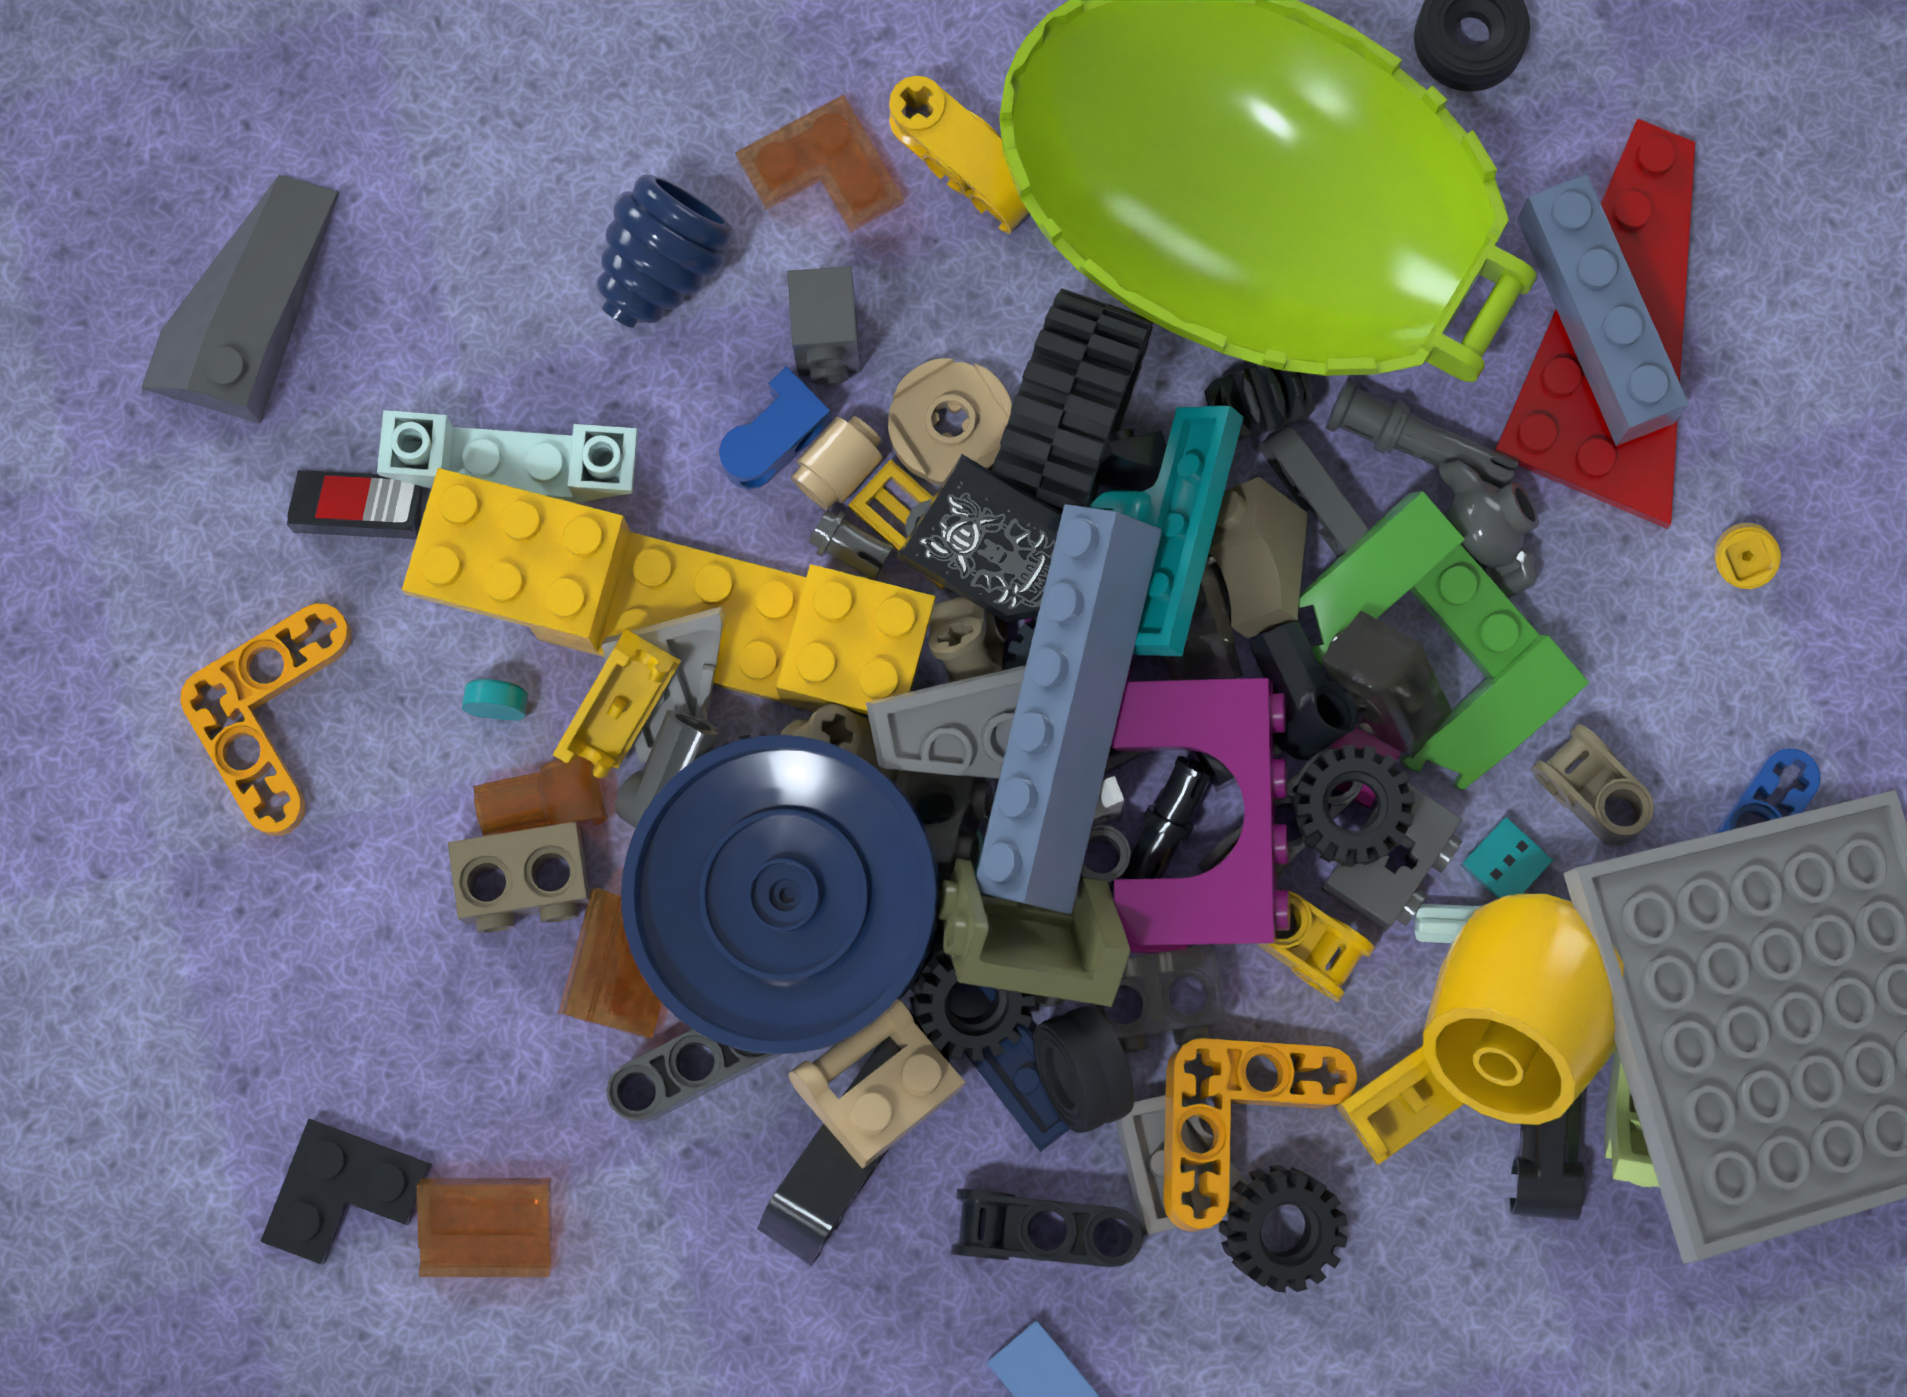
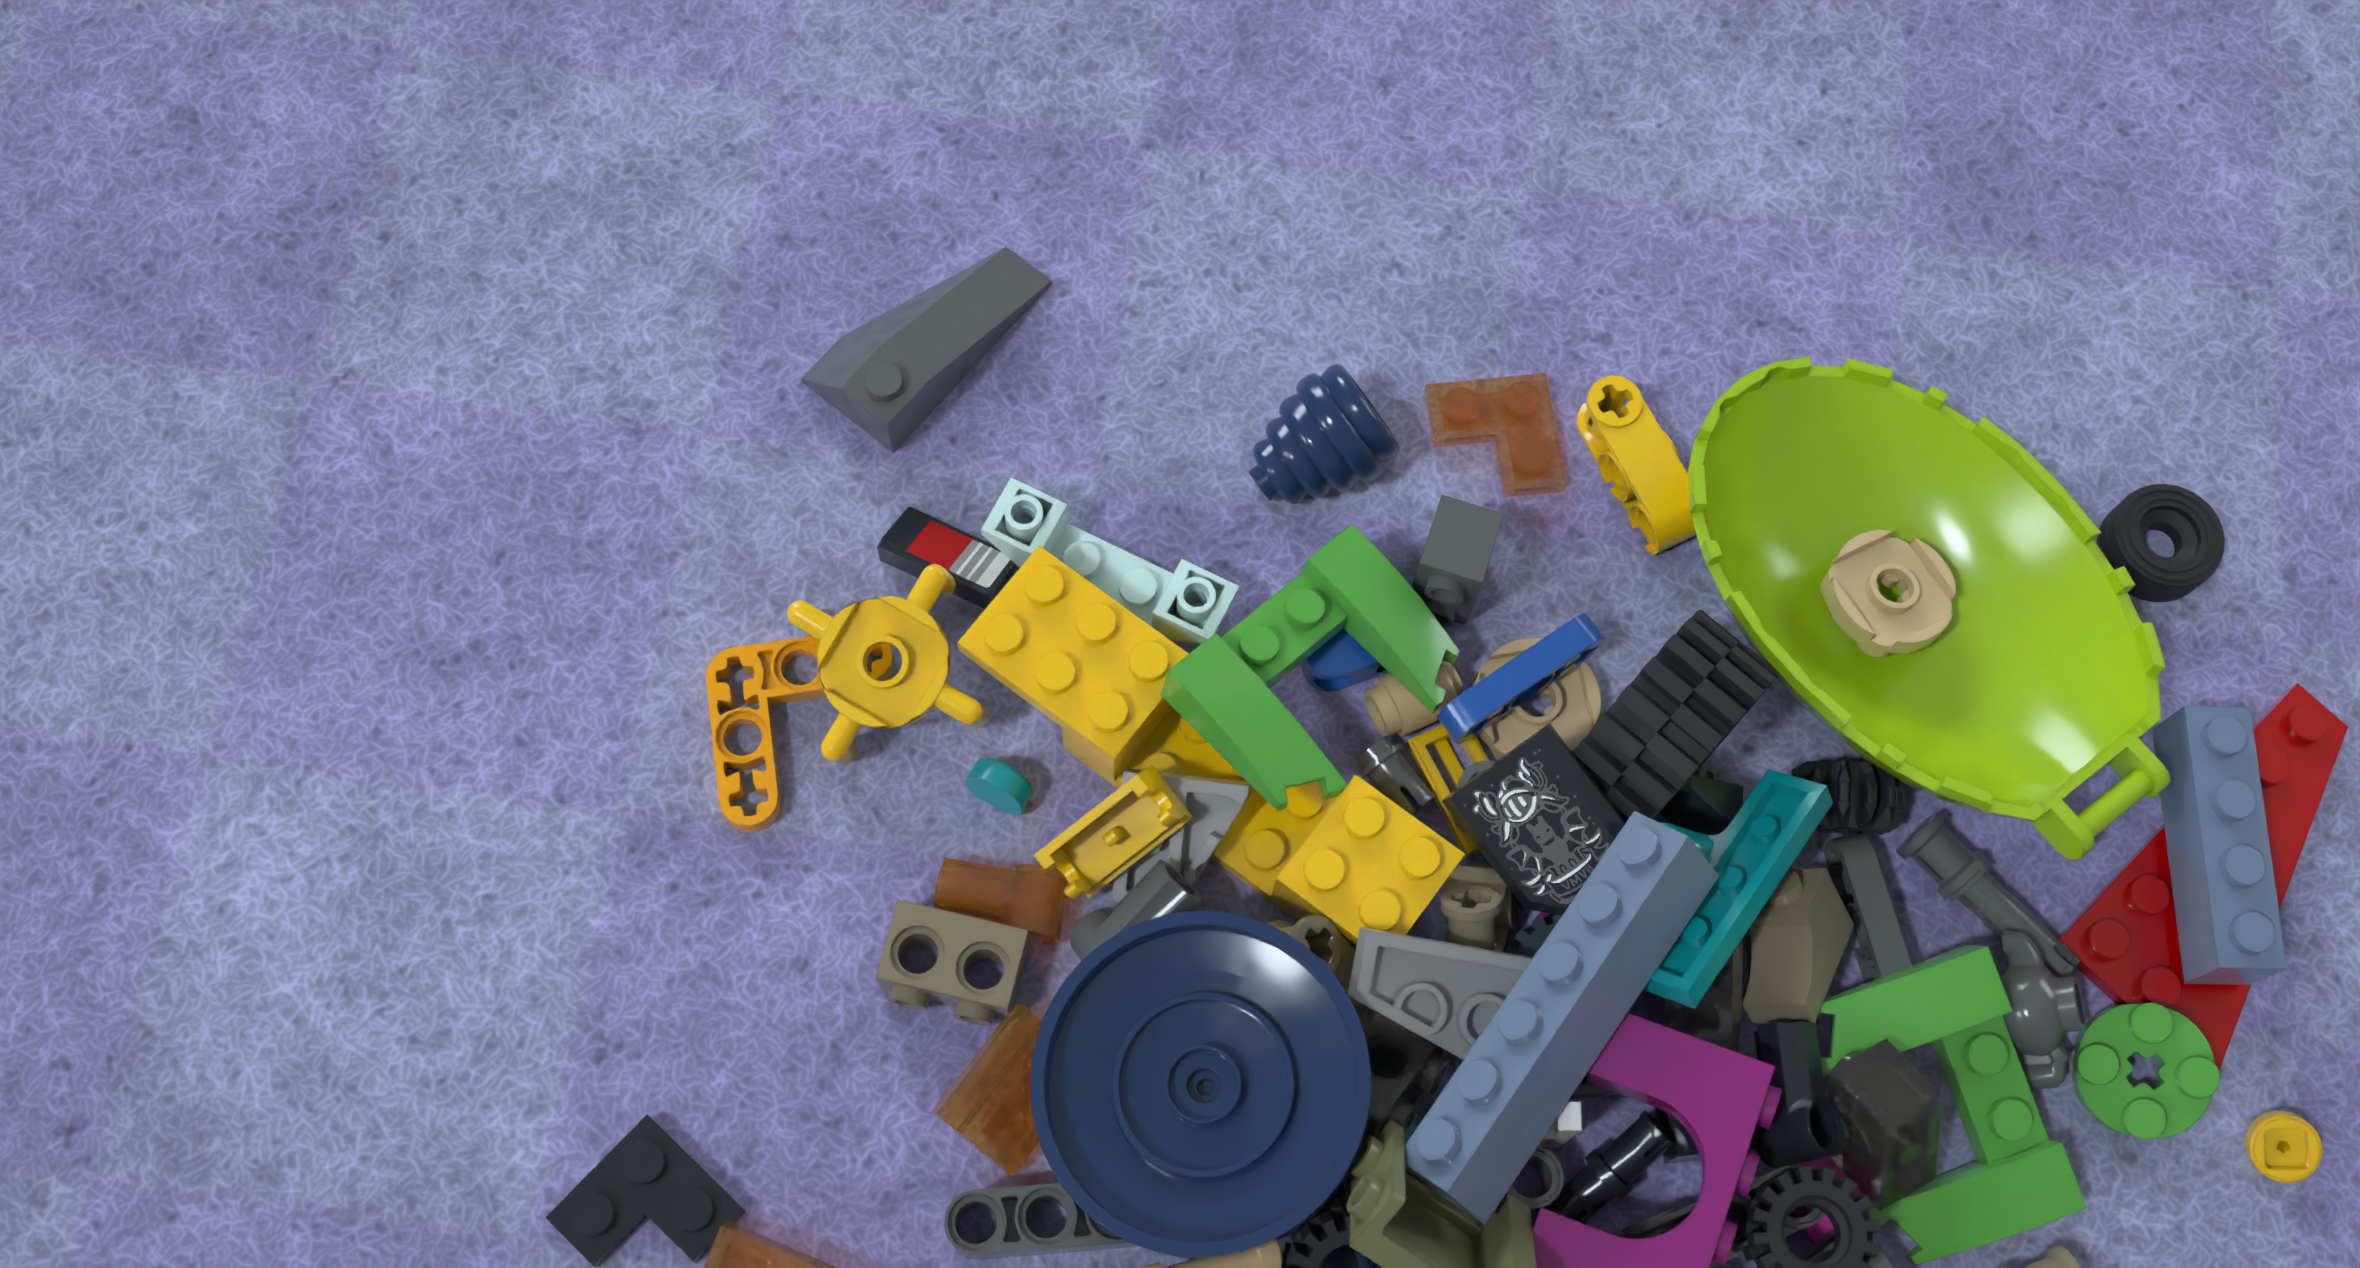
camera: 15 degrees right, 10 degrees down
(382, 627) = (923, 673): none -> yellow plate
(661, 524) = (1228, 678): none -> bright green wedge
(928, 409) = (1521, 678): none -> blue beam
(1227, 221) = (1870, 618): none -> tan plate
(1641, 530) = (2184, 1072): none -> bright green plate

